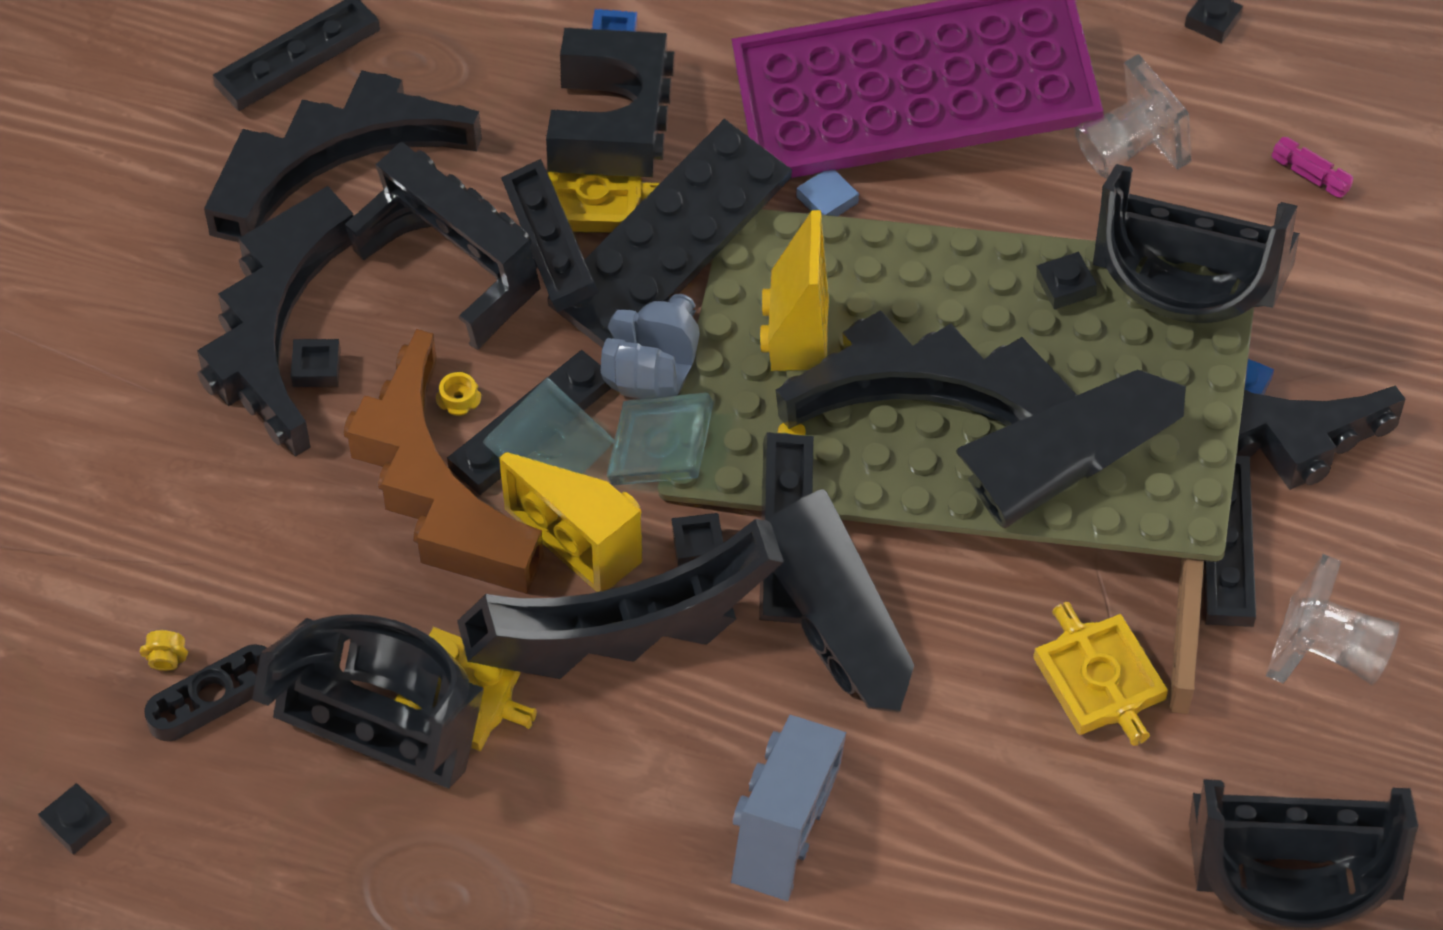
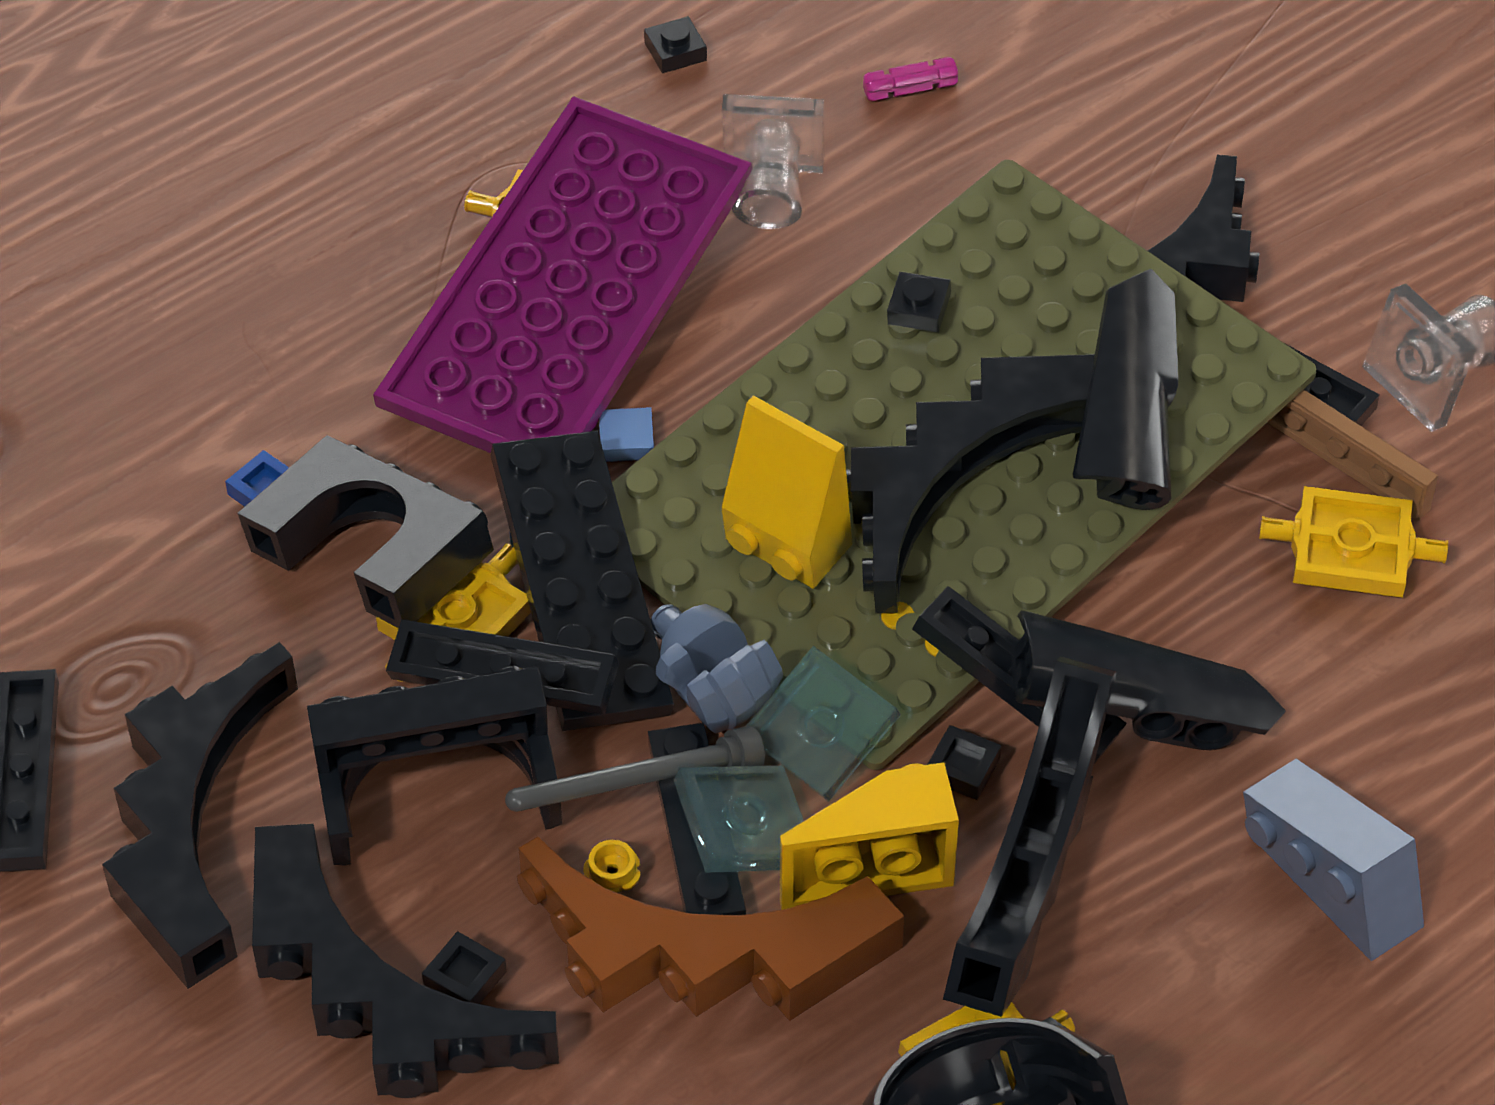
camera: 55 degrees left, 5 degrees down
(598, 404) = (737, 748): none -> dark grey piece
(1226, 245) = (933, 203): black piece -> none

